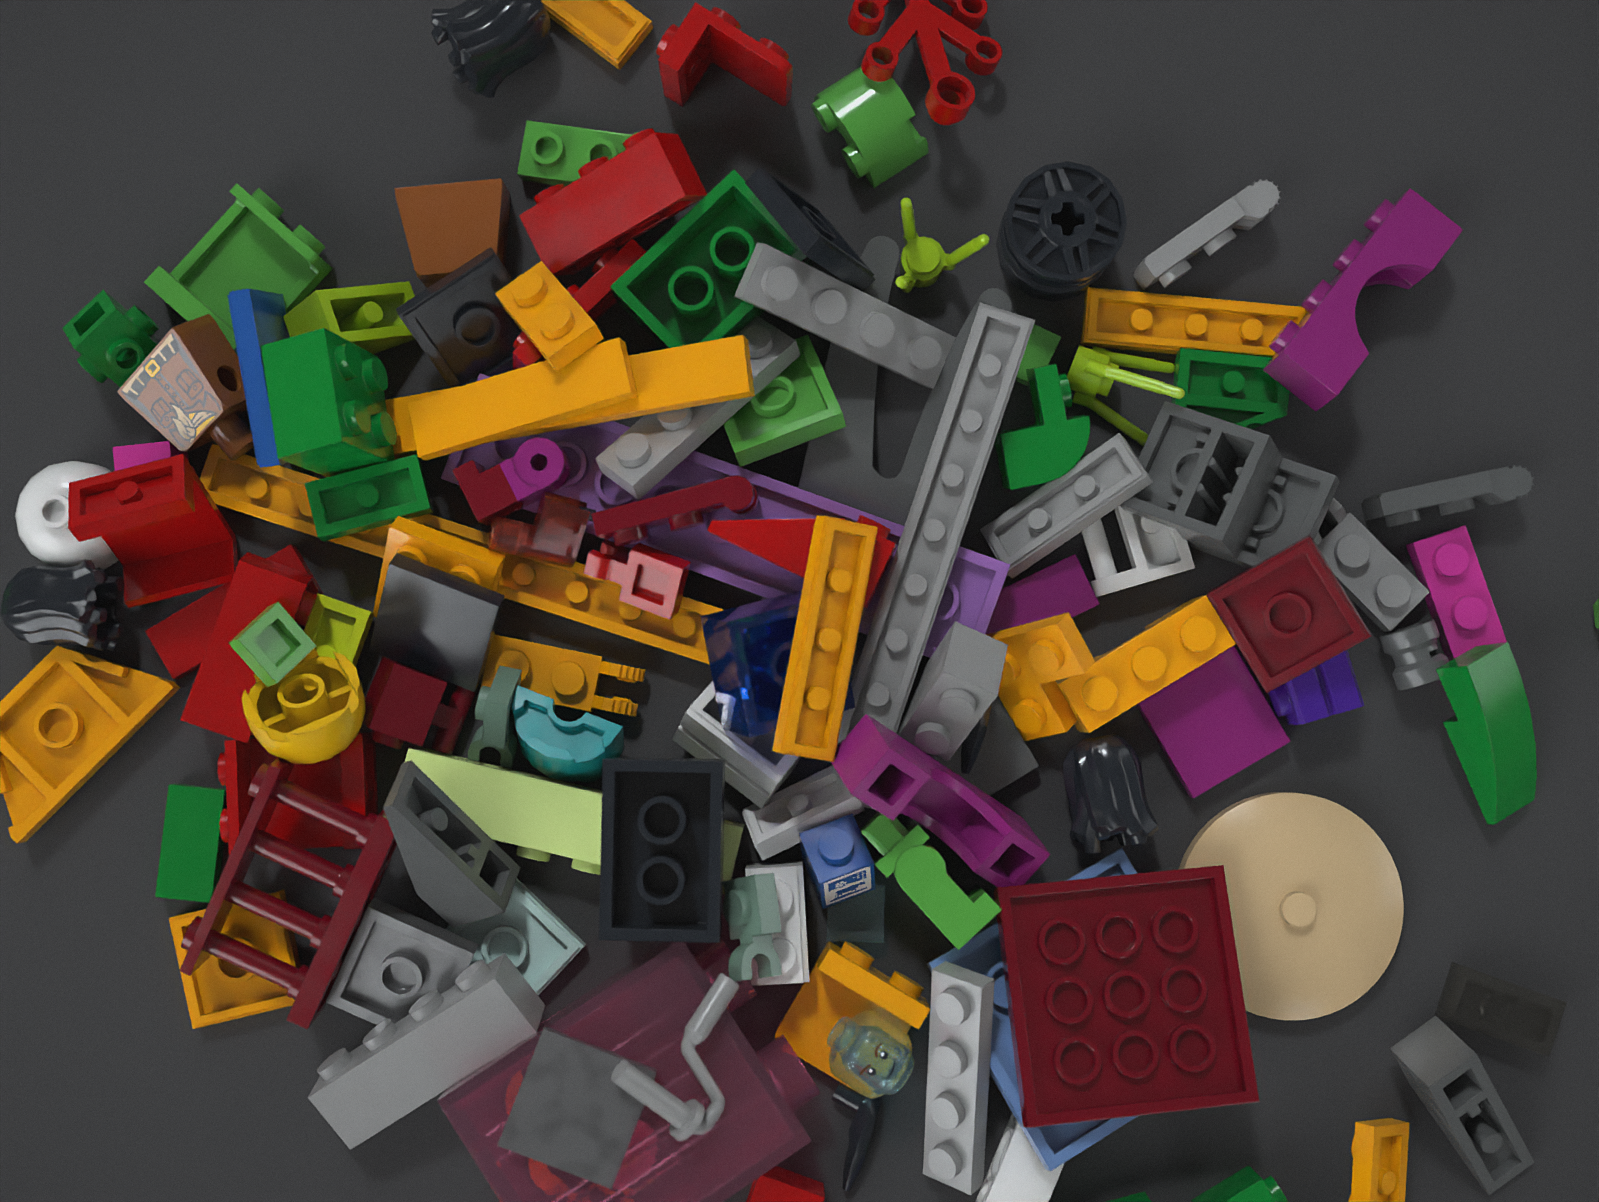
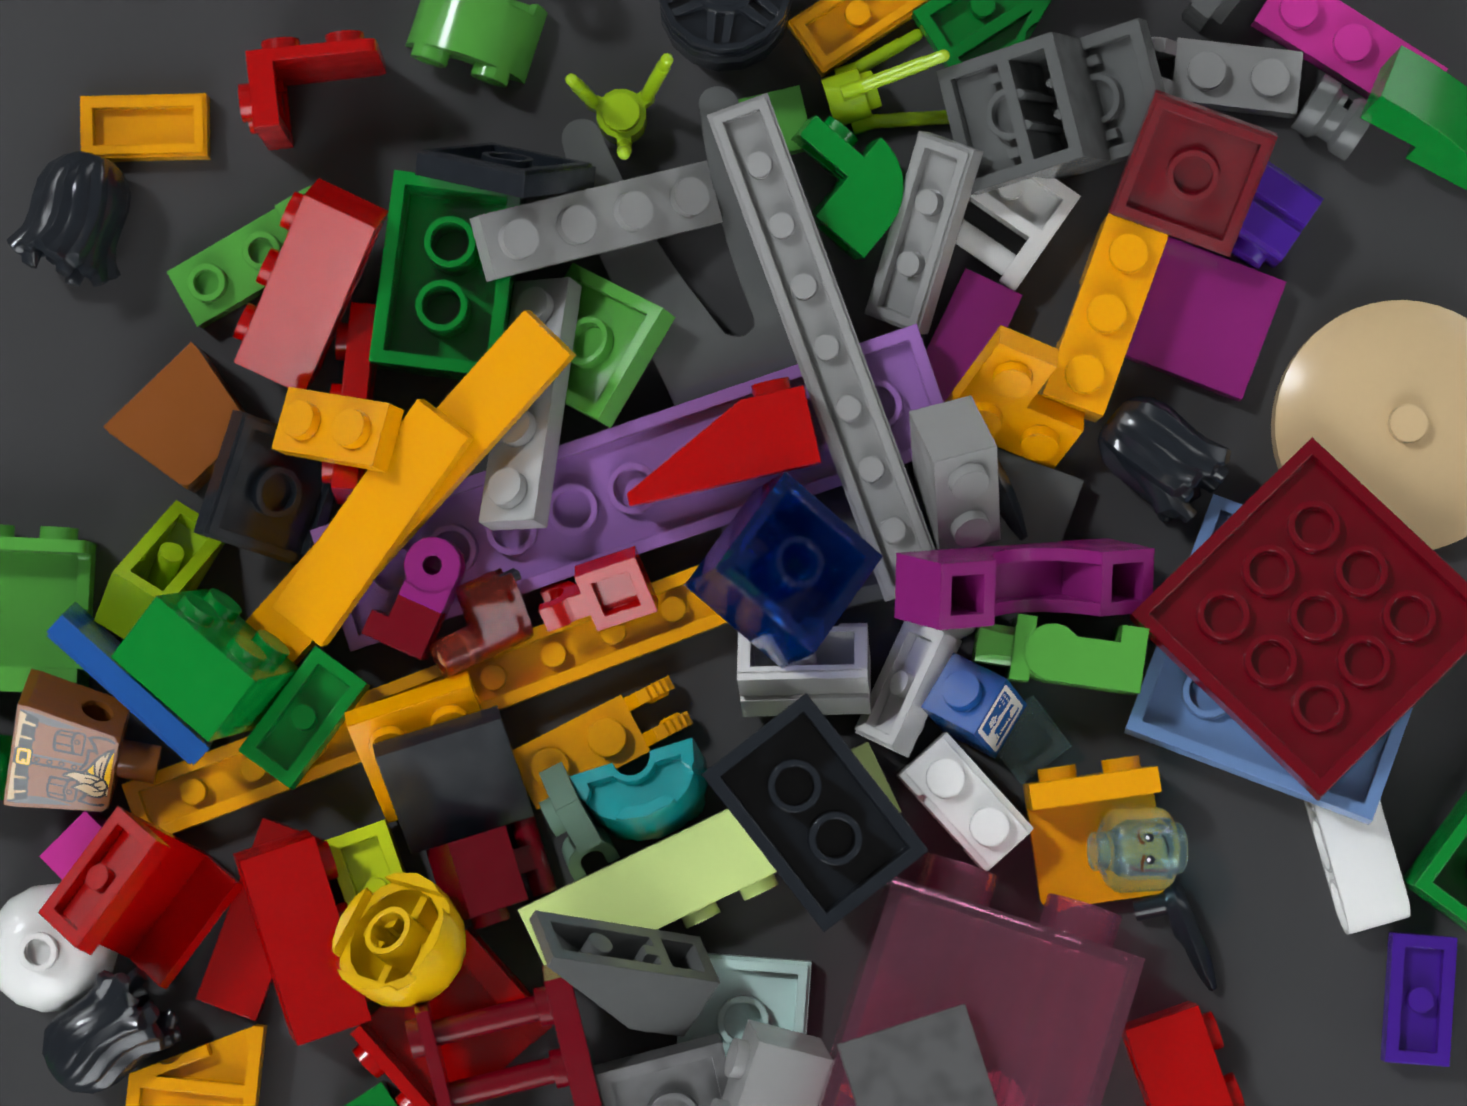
camera: 35 degrees left, 0 degrees up
(272, 644) = (329, 910): bright green plate -> none
(678, 508) = (588, 507): dark red plate -> none
(690, 1116) = (1024, 1018): light grey piece -> none
(752, 917) = (939, 810): sand green plate -> none
(825, 638) = (809, 516): light orange tile -> none
(958, 1076) = (1229, 806): light grey plate -> none

